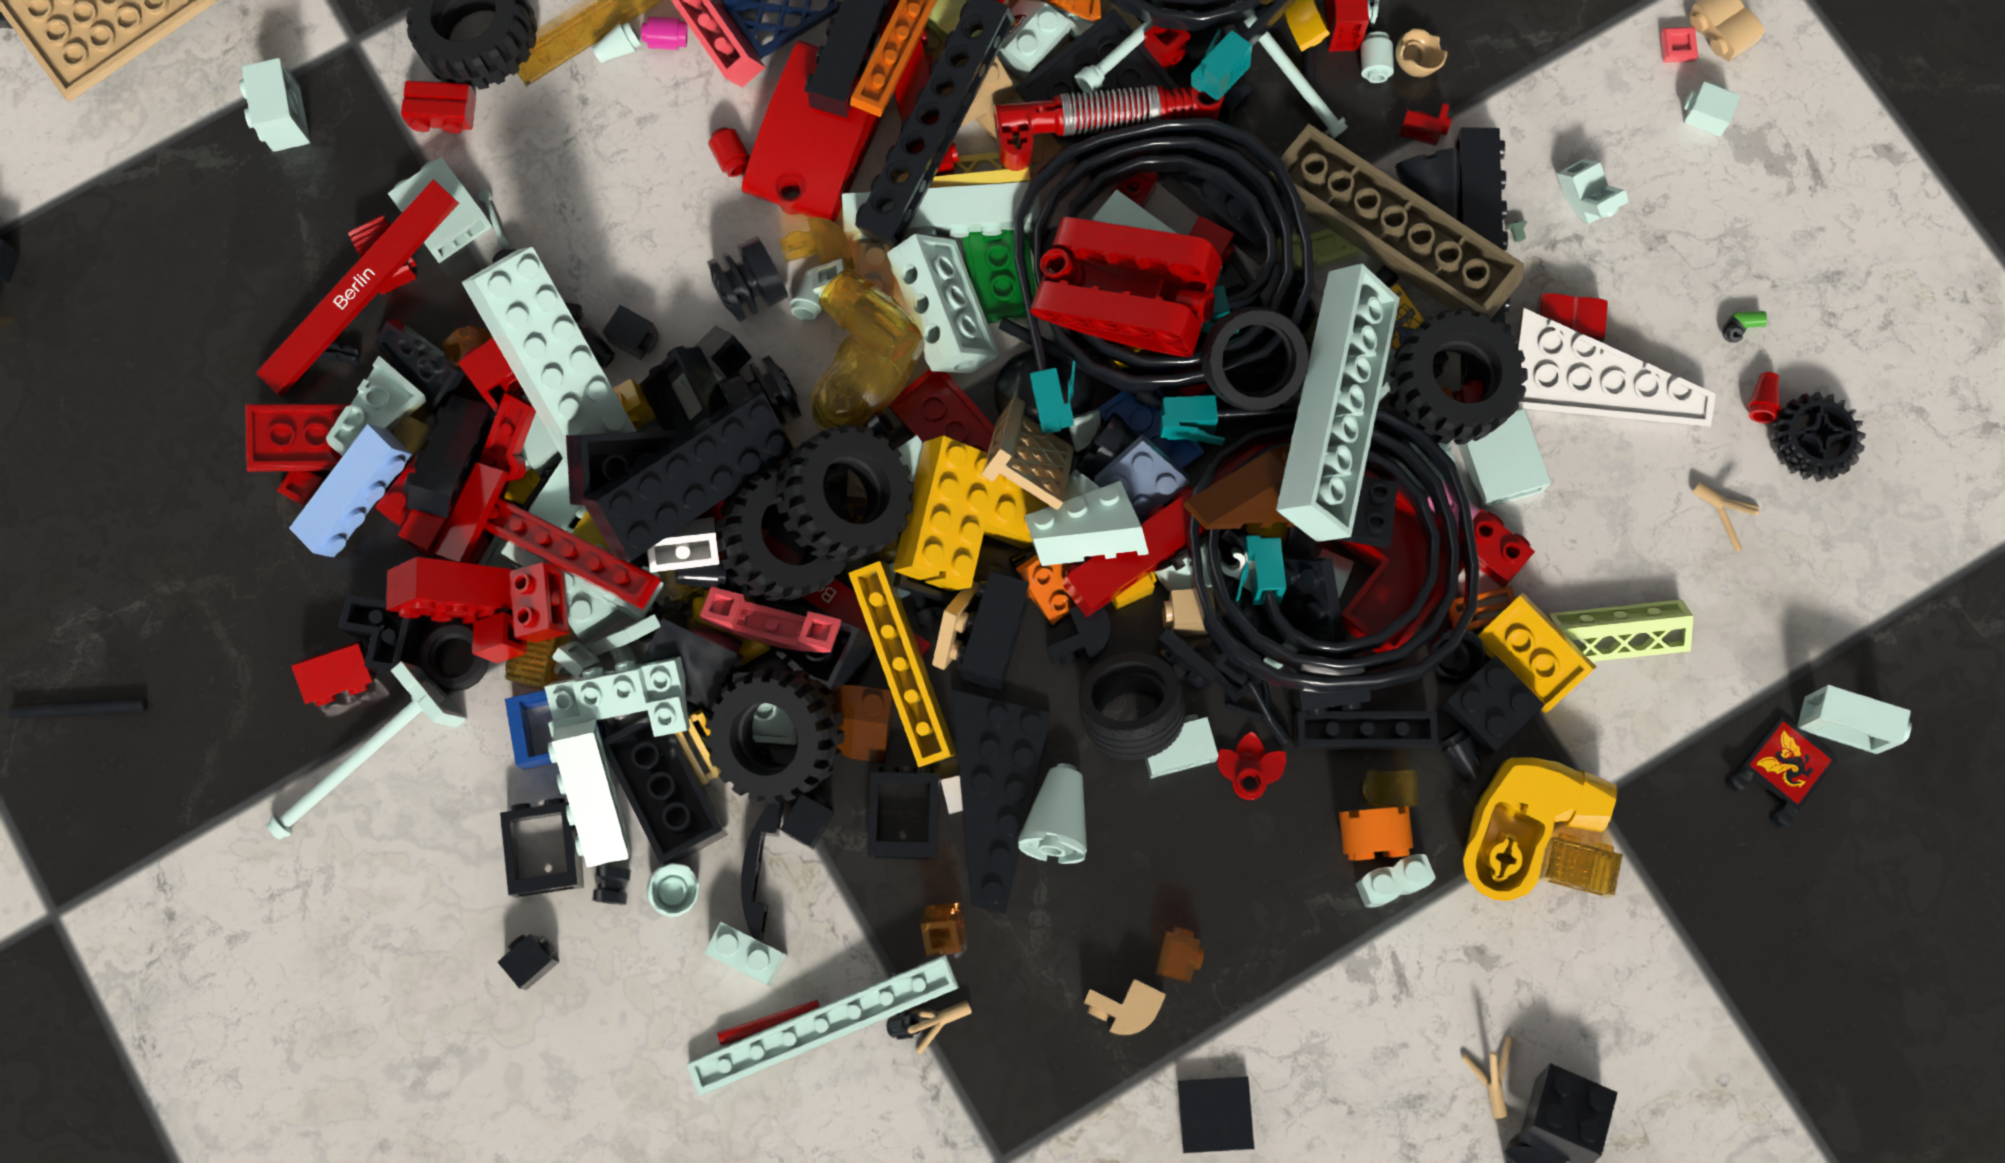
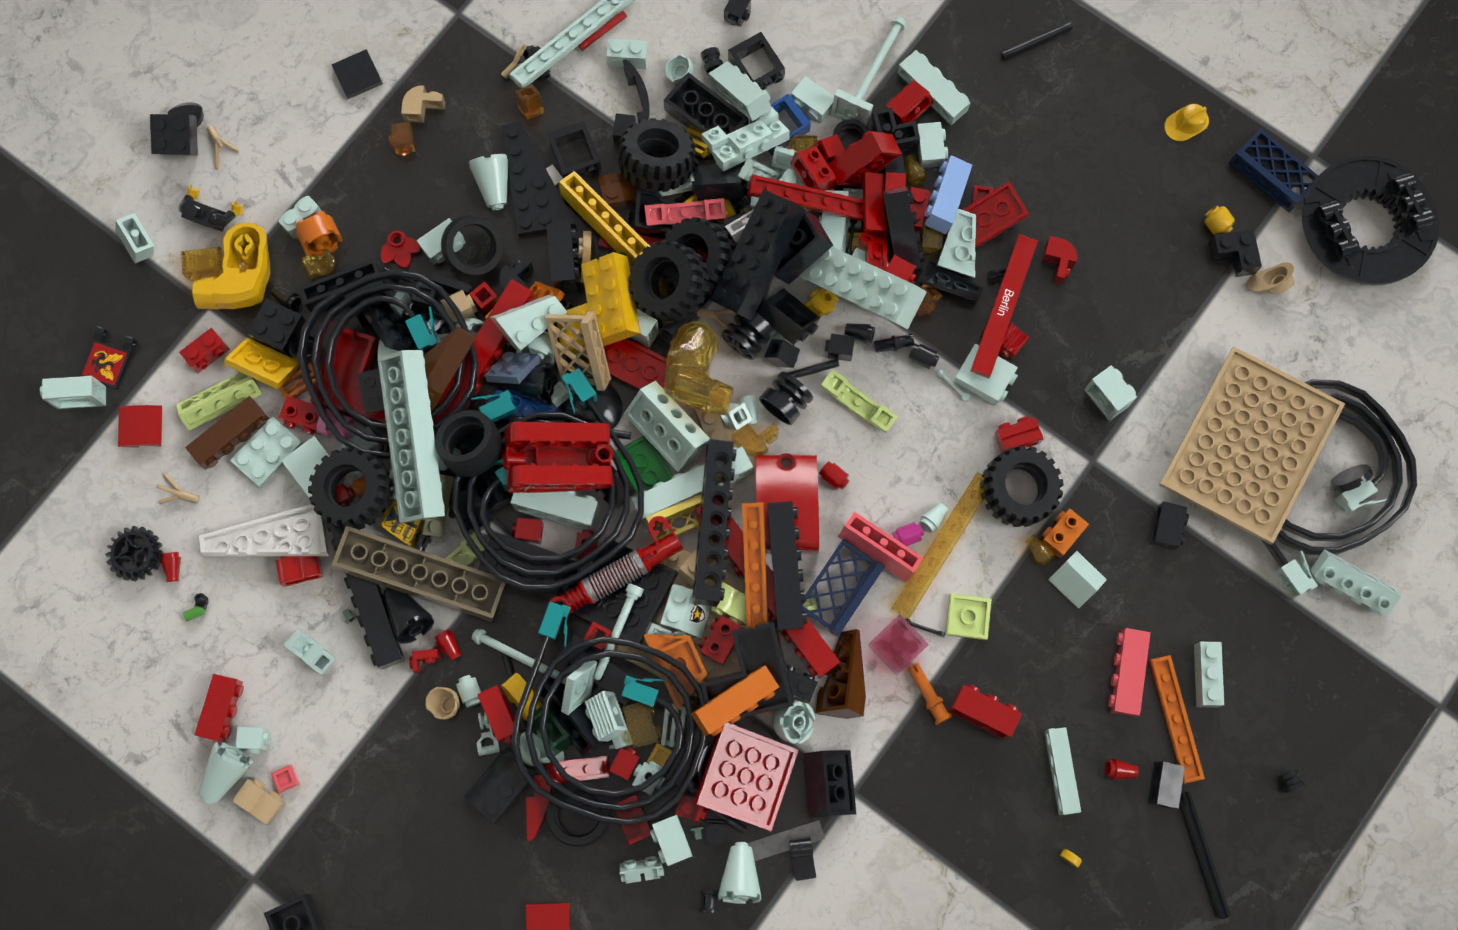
camera: 155 degrees right, 0 degrees up
(231, 337) = (1061, 253): none -> red brick
(289, 721) = (945, 96): none -> light aqua brick
(332, 582) = (931, 144): none -> light aqua brick
(380, 559) = (915, 171): none -> clear yellow cone
(482, 747) = (813, 99): none -> light aqua brick
(641, 241) = (858, 402): none -> yellowish green slope
(693, 322) = (814, 368): none -> black bar
(1143, 618) = (484, 298): none -> red brick
(1385, 134) = (447, 643): none -> red cone
(1555, 947) = (205, 214): none -> black torso
(1568, 519) = (264, 451): none -> light aqua plate
(1620, 714) = (204, 350): none -> red brick
(1622, 566) = (227, 433): none -> reddish brown brick
(1686, 952) = (134, 238): none -> light aqua brick
(1747, 166) = (219, 708): none -> red brick
(1758, 635) = (140, 426): none -> red slope
(1764, 77) = (223, 770): none -> light aqua cone

